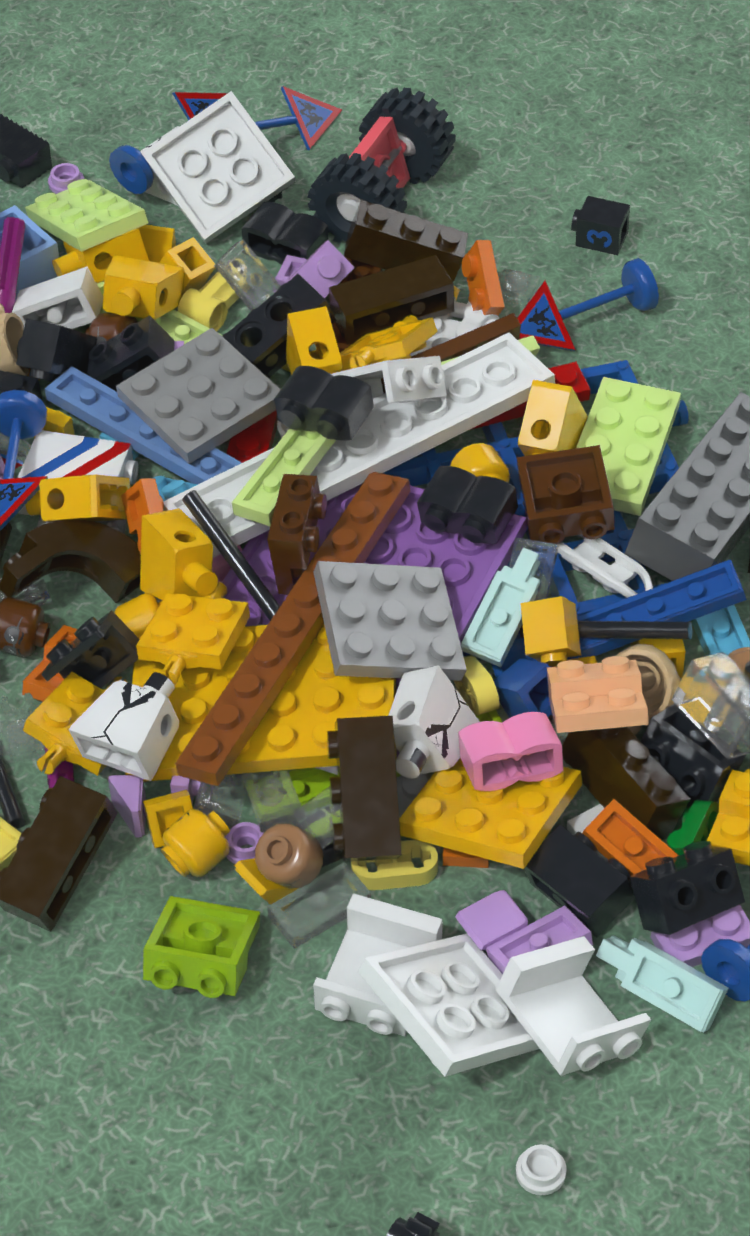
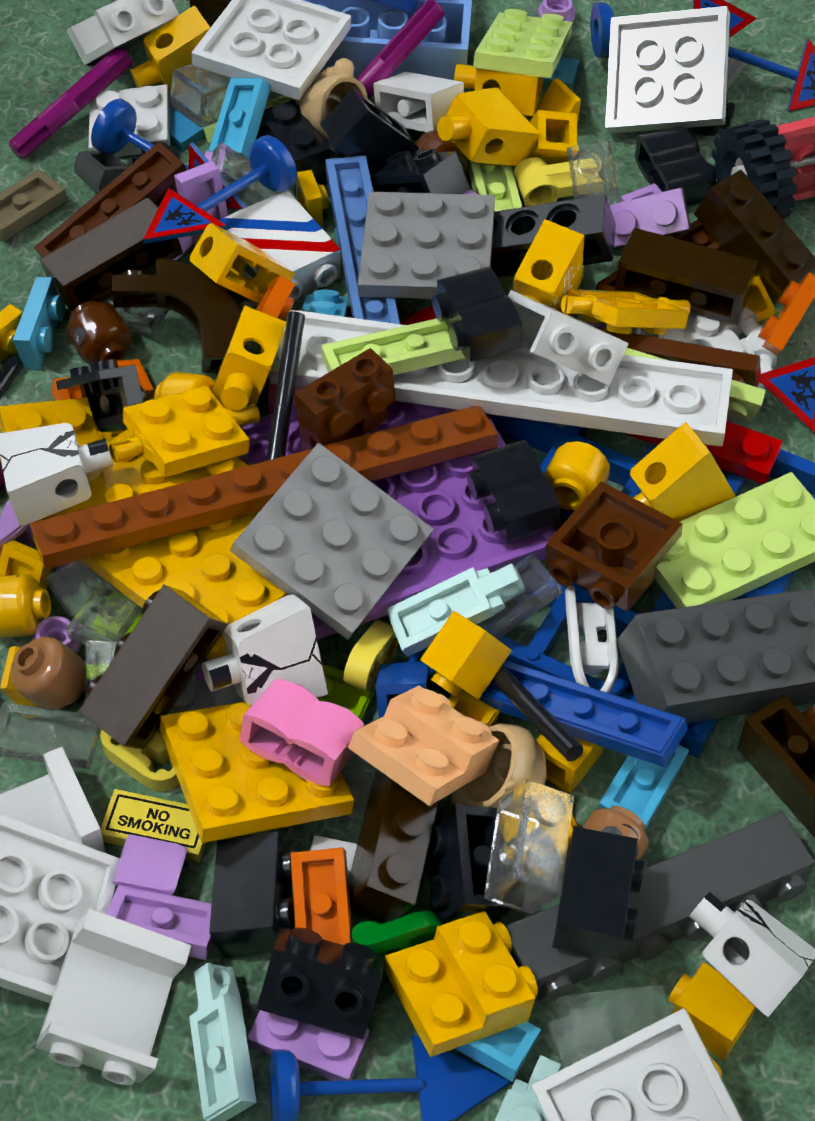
camera: 40 degrees right, 5 degrees up
(456, 893) = (152, 819): none -> light yellow tile

